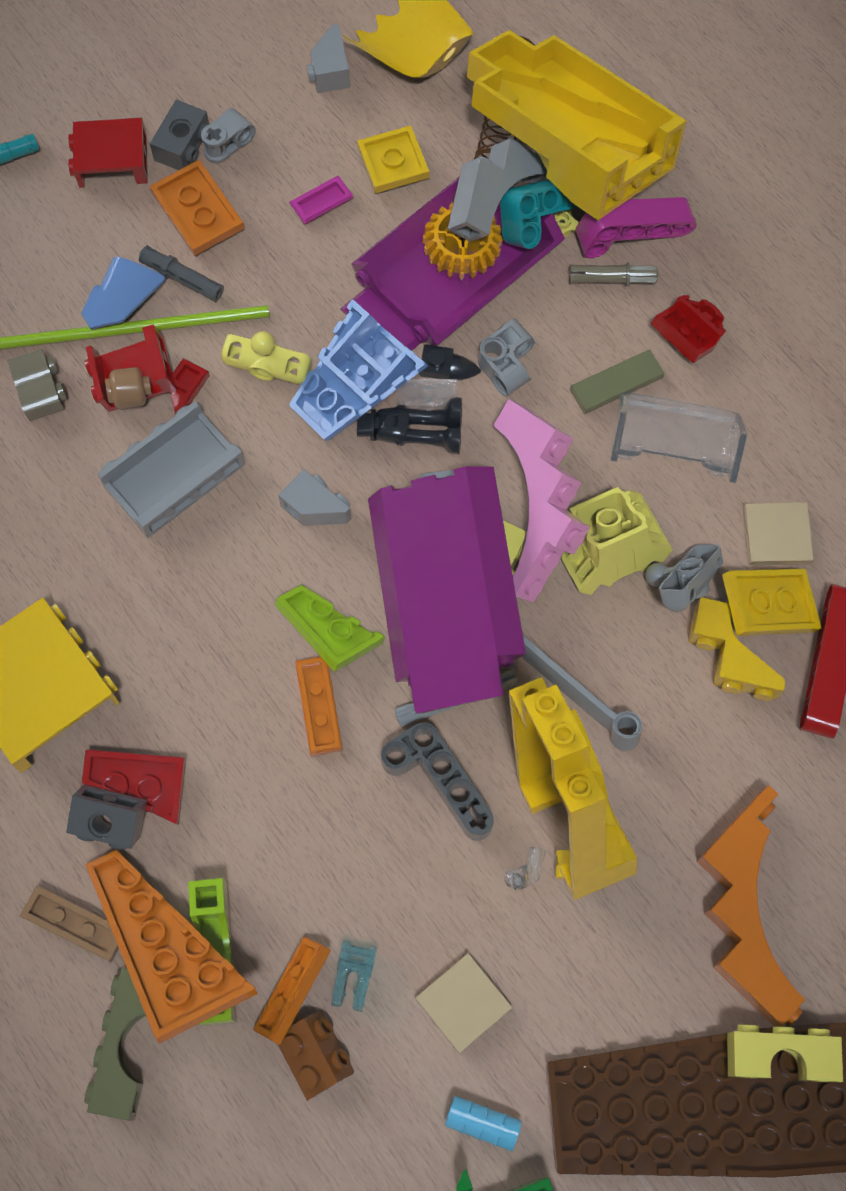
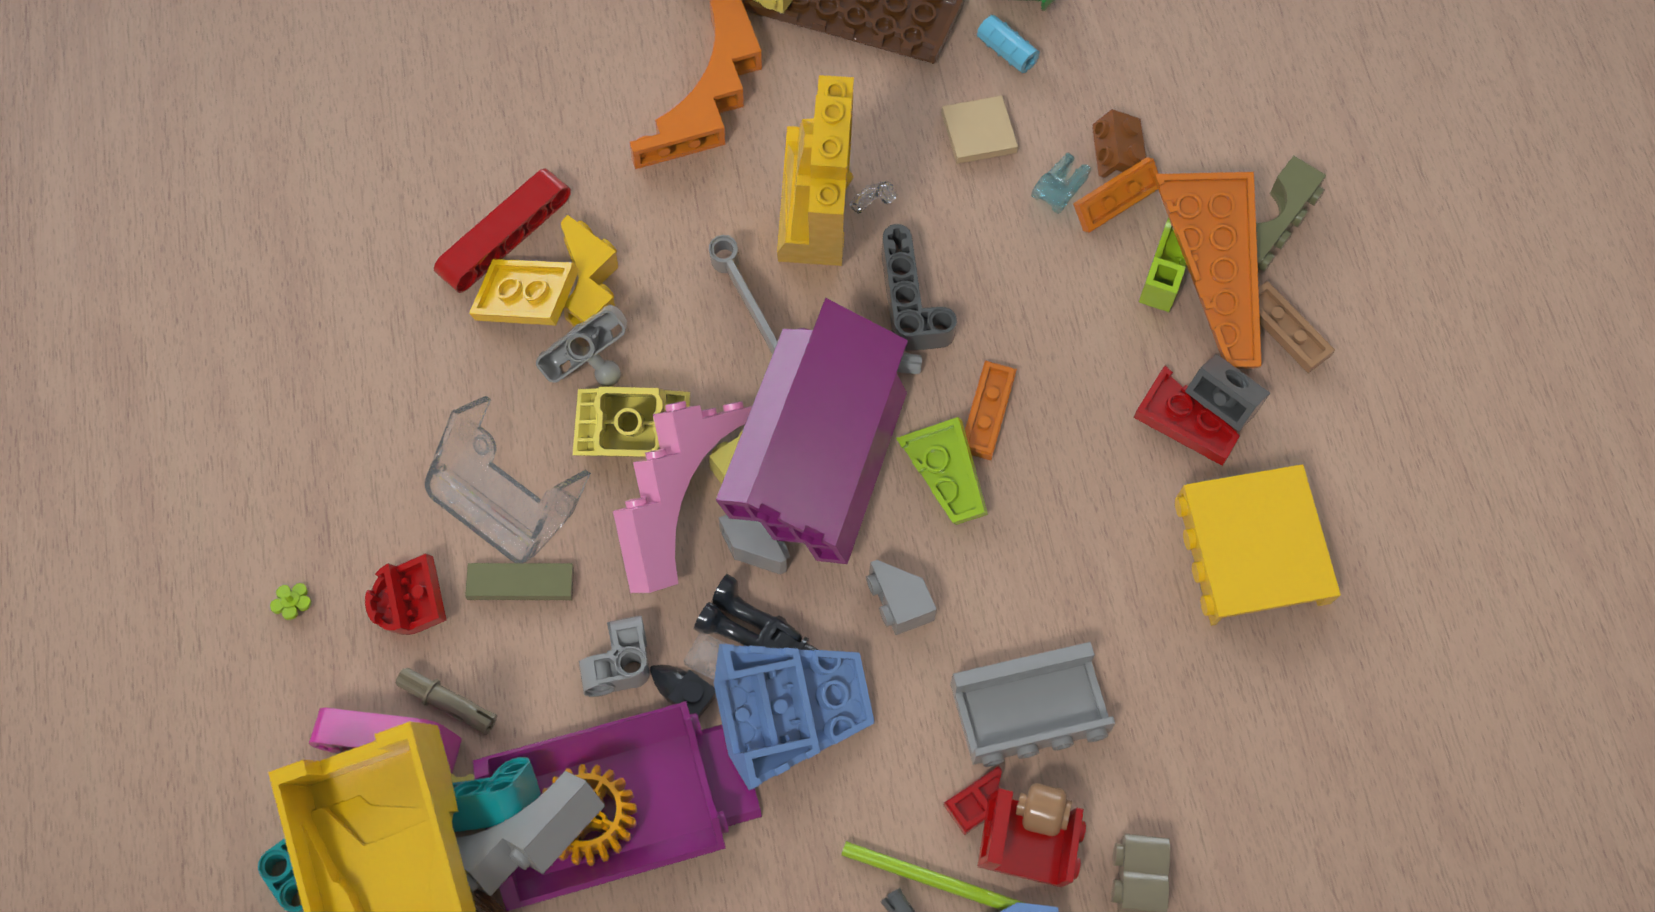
camera: 155 degrees left, 5 degrees down
(265, 358) = (876, 781): light yellow piece -> none
(774, 291) = (290, 601): none -> lime plant
(778, 533) = (468, 360): tan tile -> none

